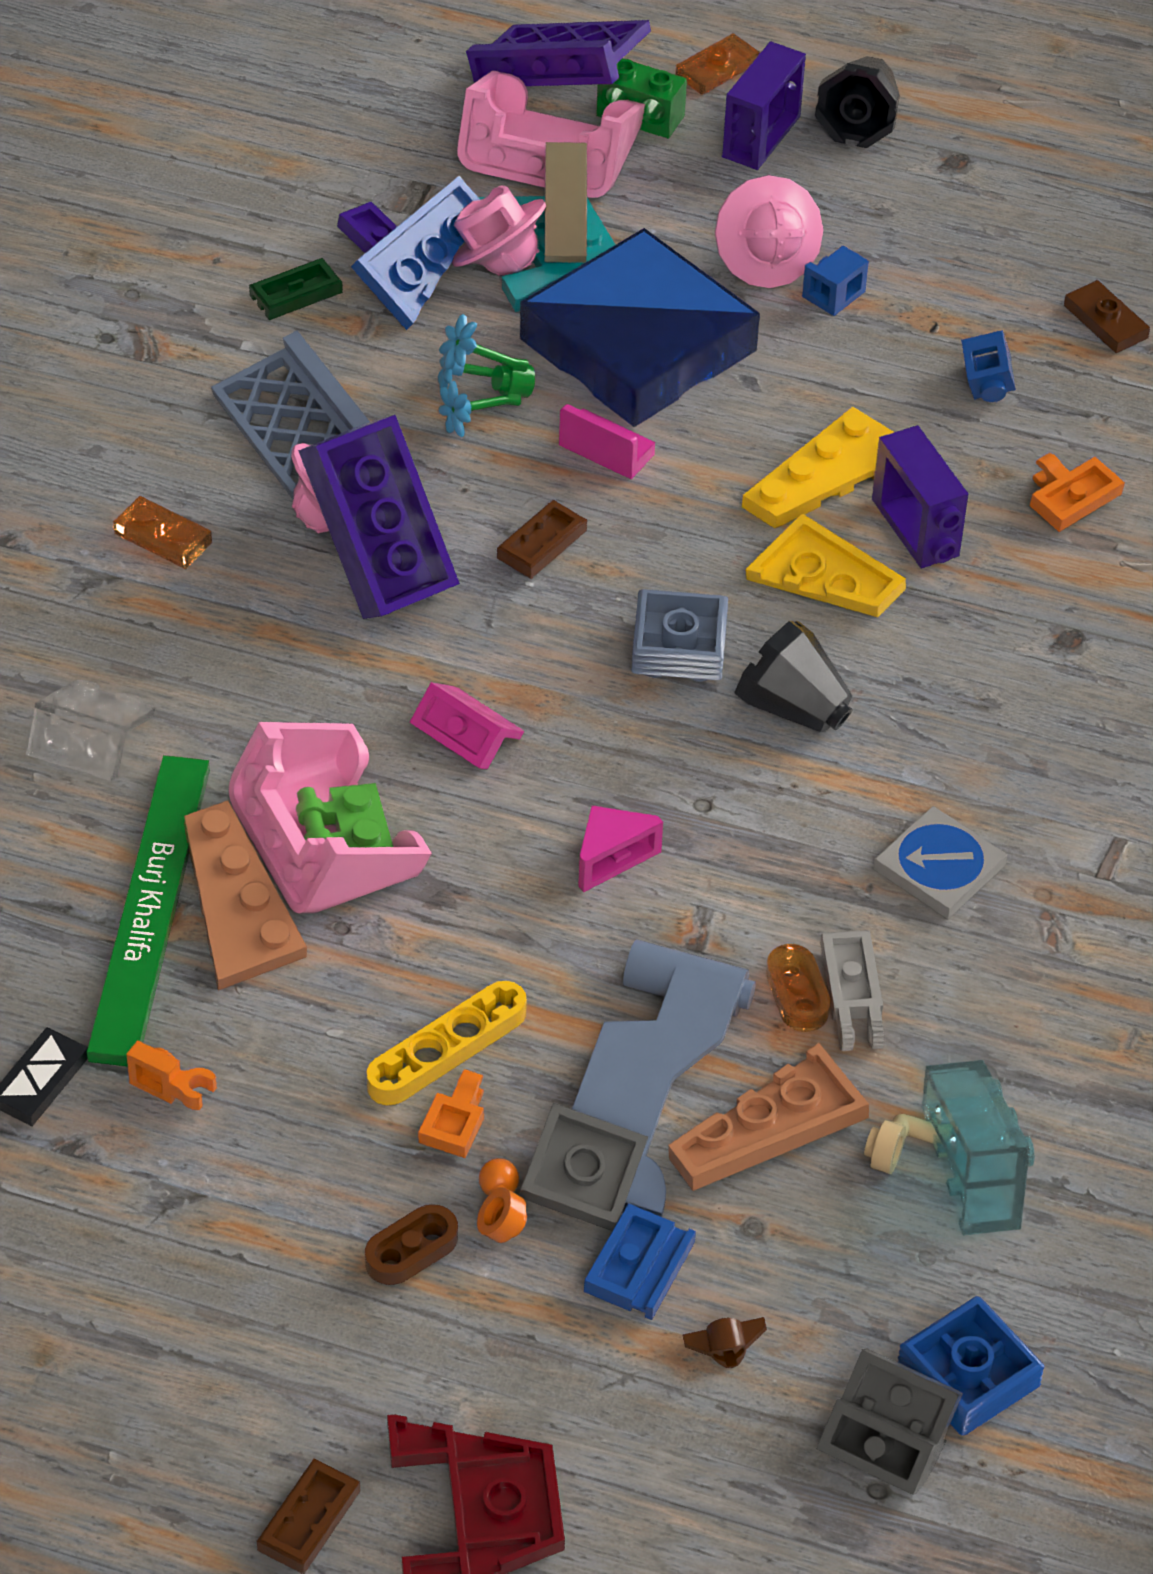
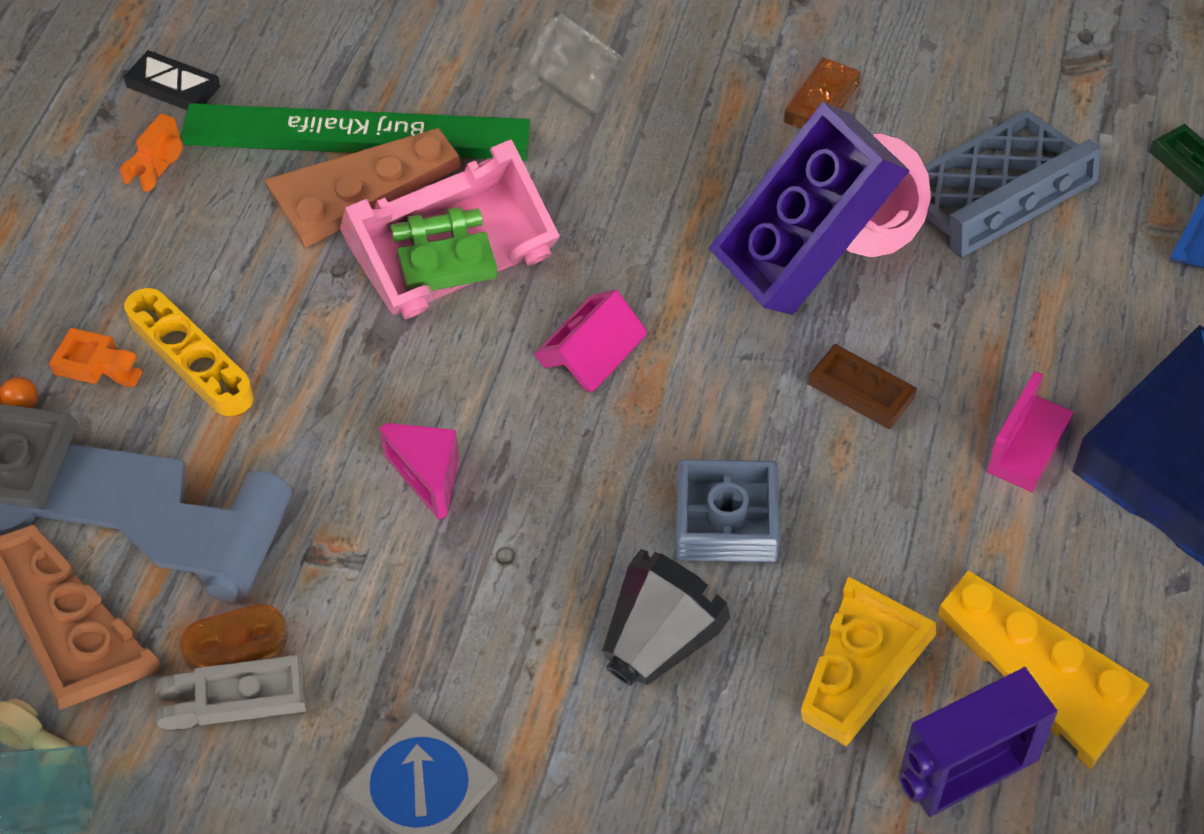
camera: 90 degrees right, 5 degrees up
(512, 379) = (1098, 339): plant -> none

